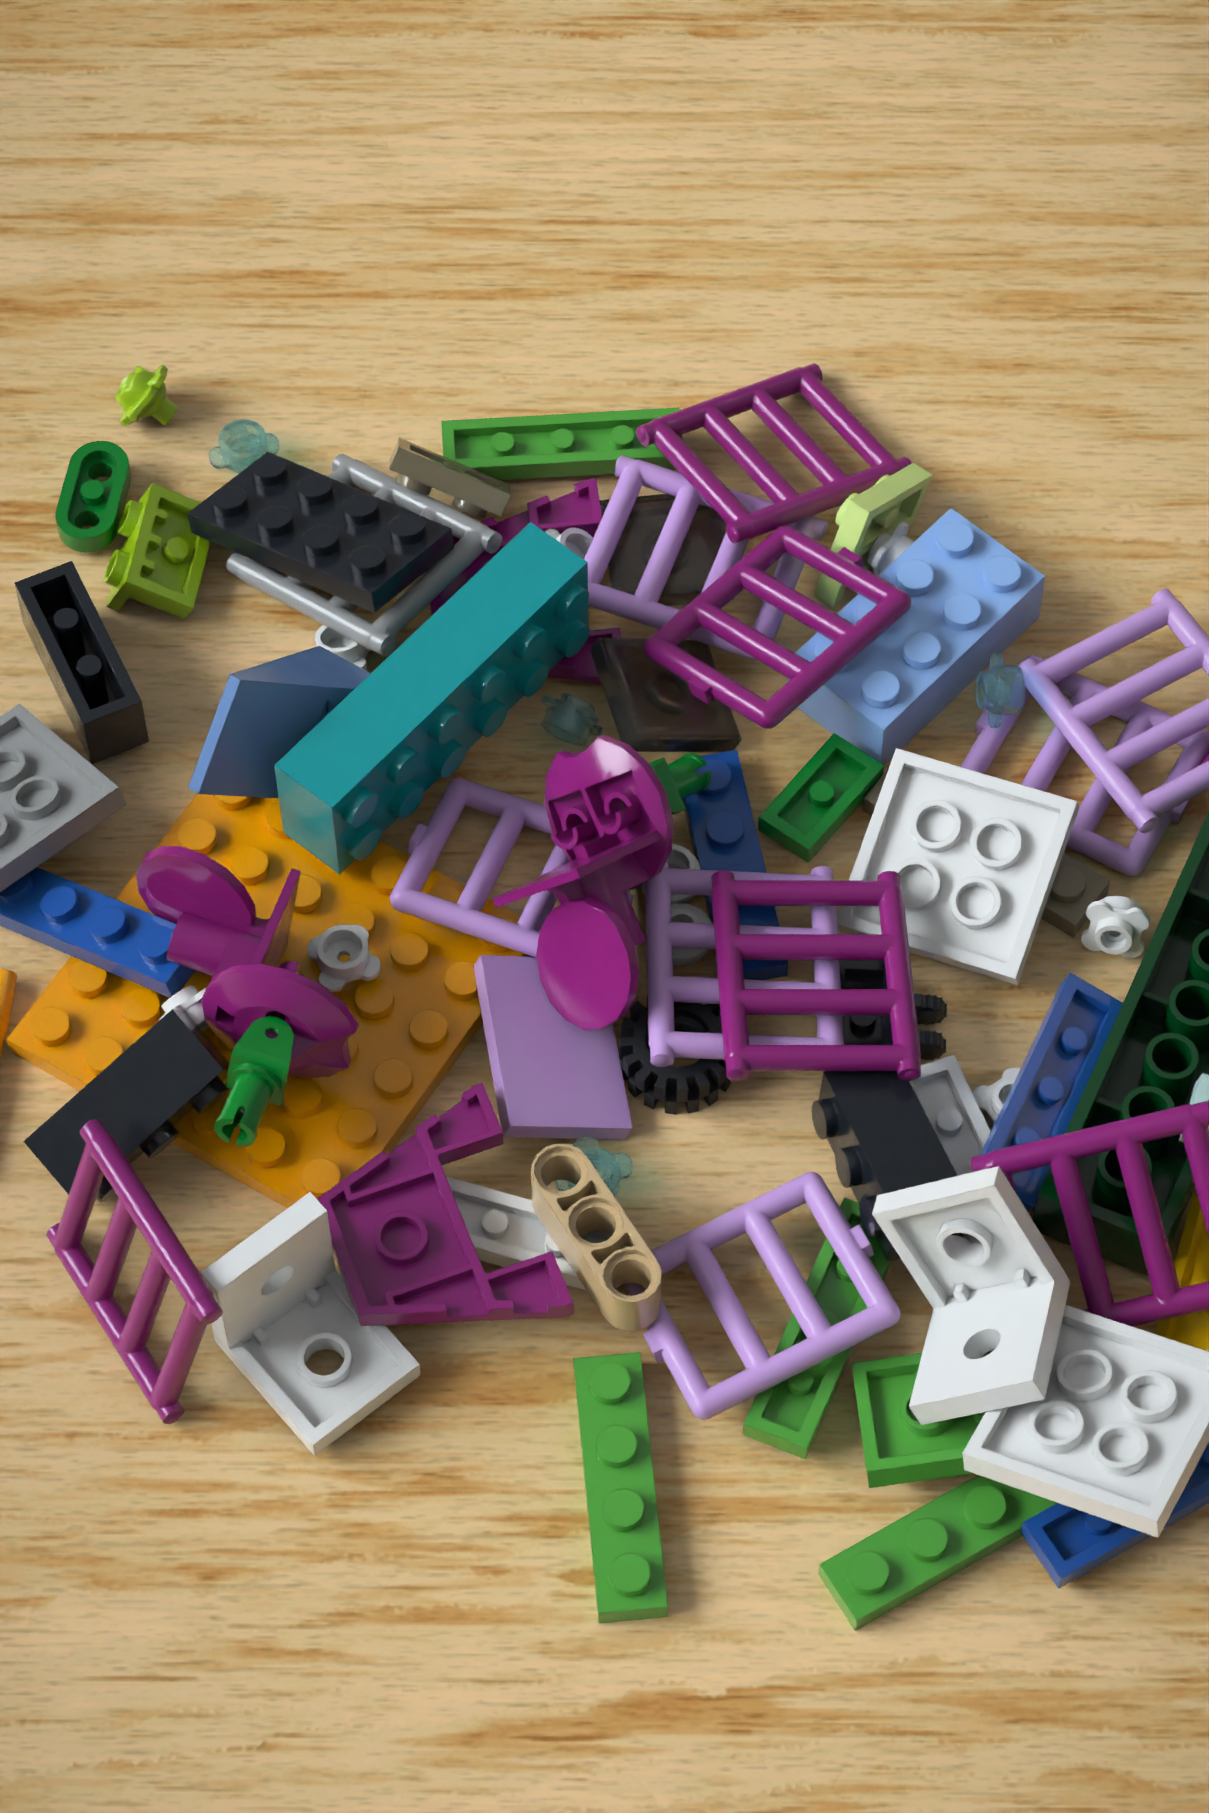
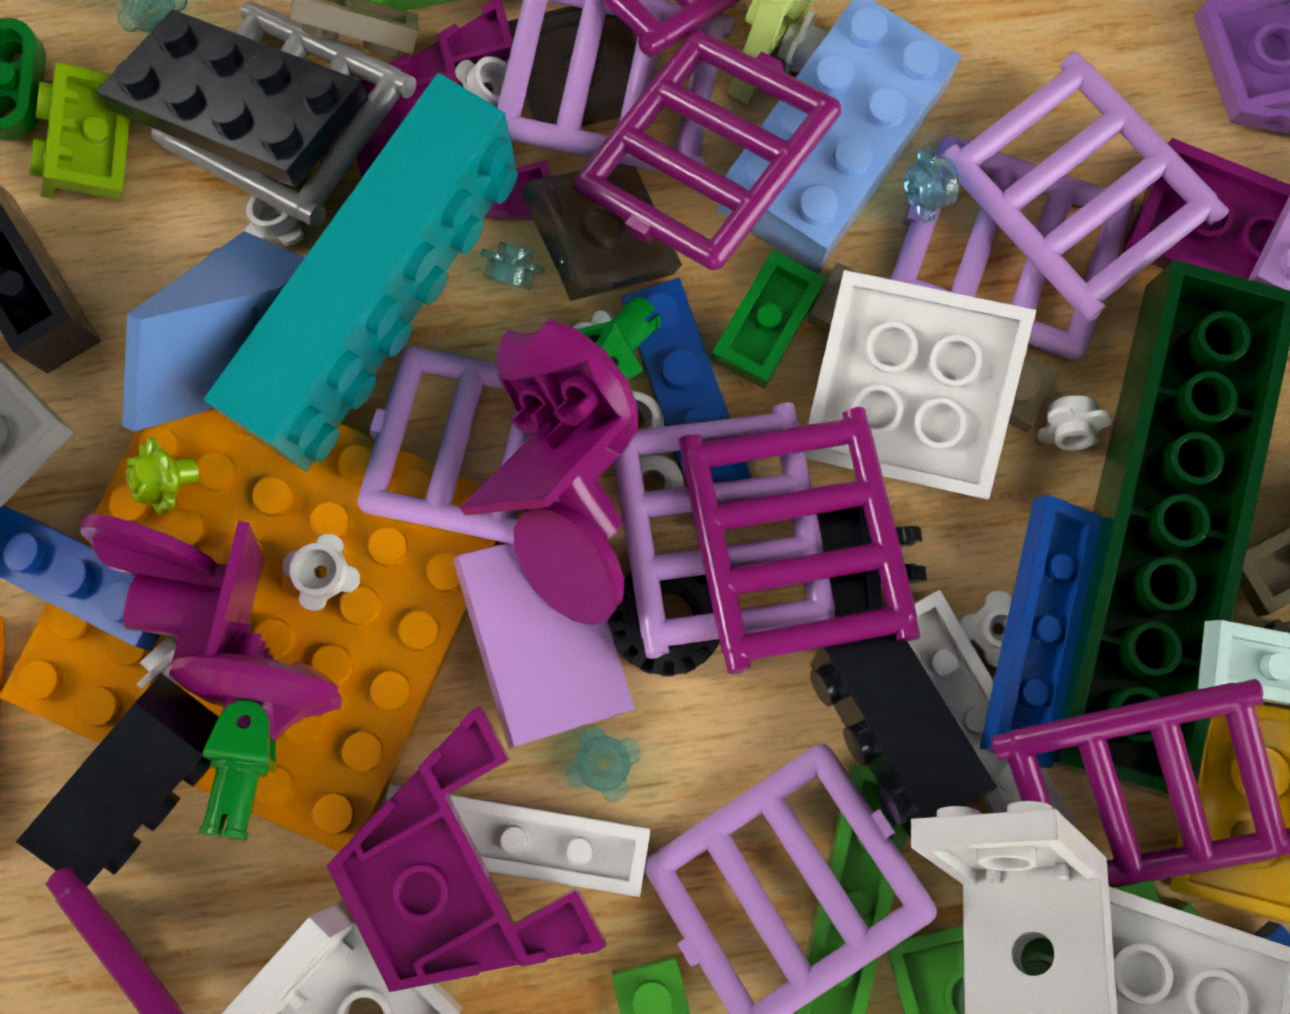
camera: 10 degrees left, 20 degrees up
(204, 838) = (157, 477): none -> lime plant
(597, 1265) = (626, 898): tan beam -> none

